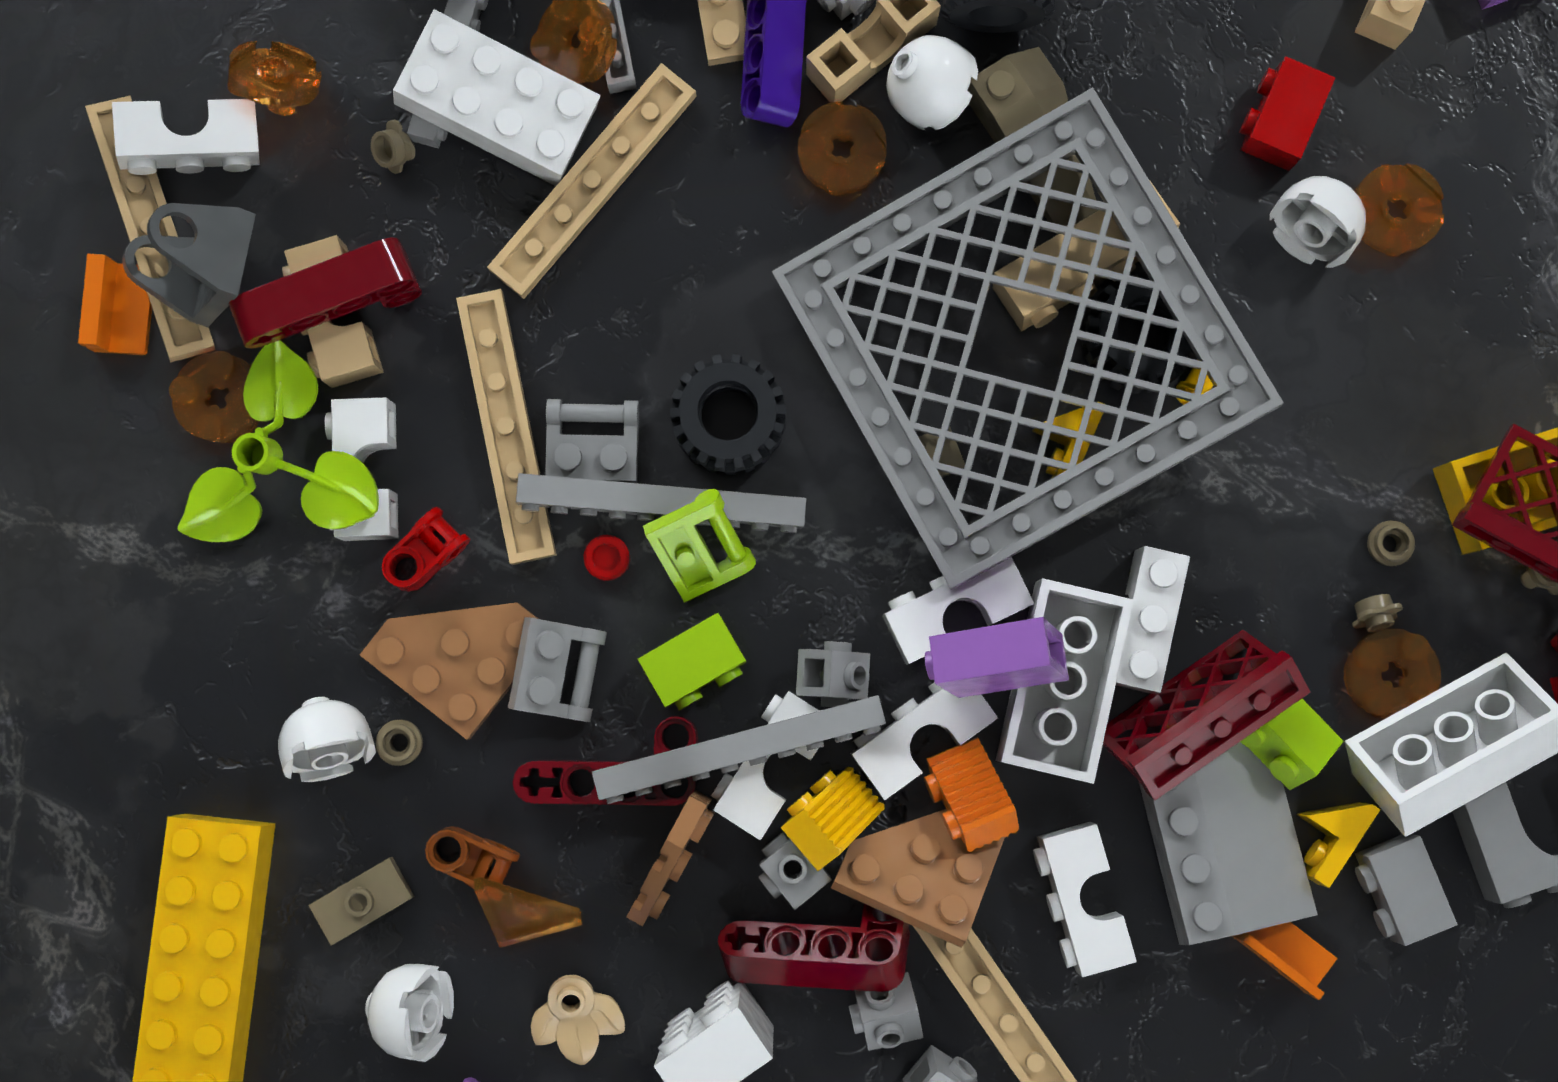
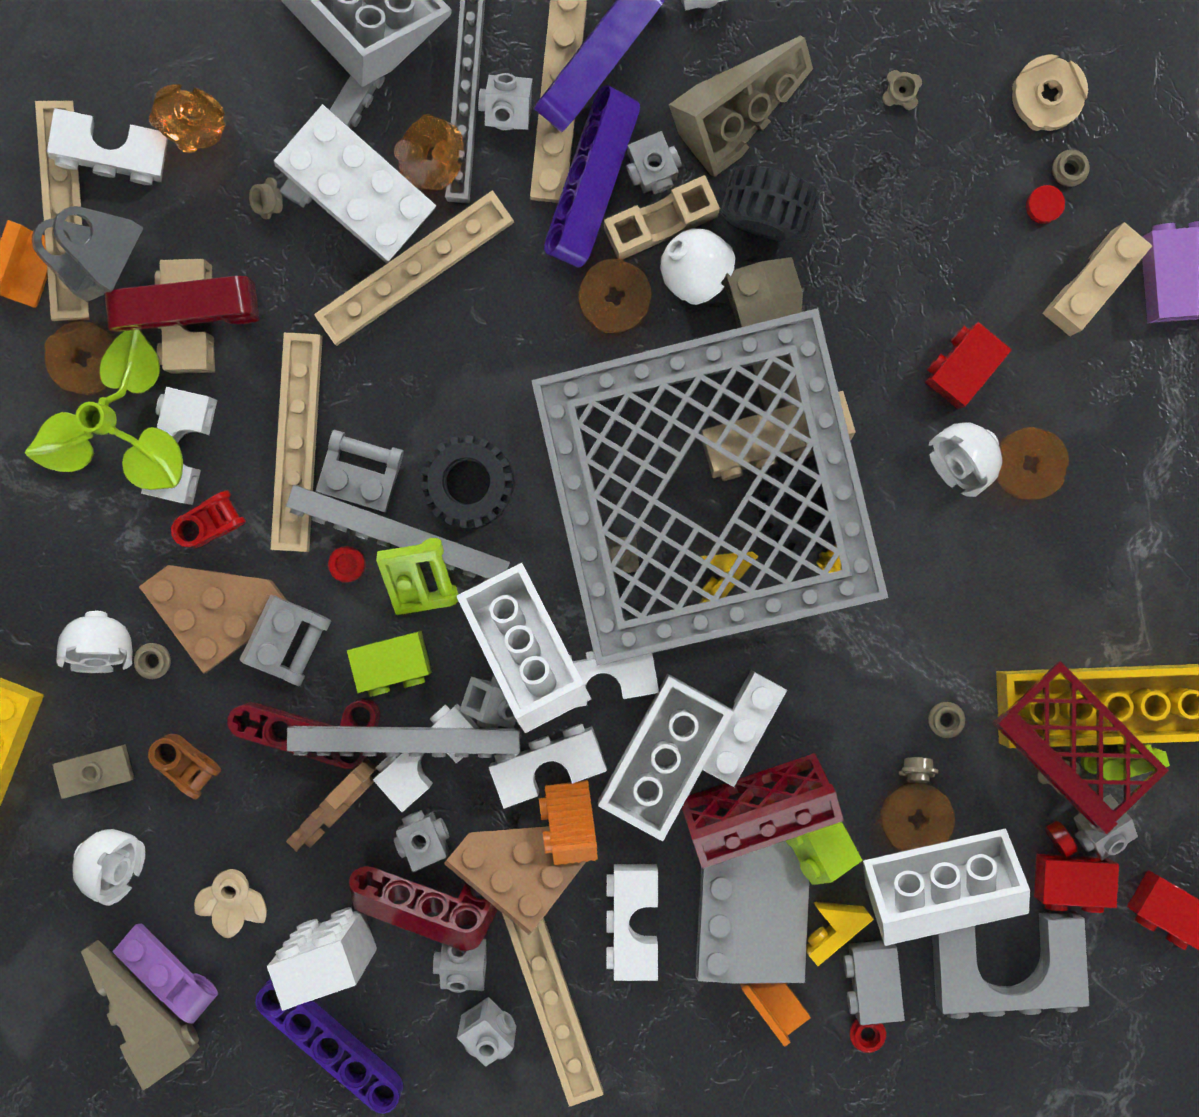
camera: 15 degrees right, 5 degrees up
(522, 915) = (209, 817): clear orange tile -> none
(832, 817) = (461, 810): yellow brick -> none
(855, 591) = (523, 648): none -> white brick
(997, 658) = (614, 730): medium lavender brick -> none
(1422, 970) = (870, 1044): none -> red plate

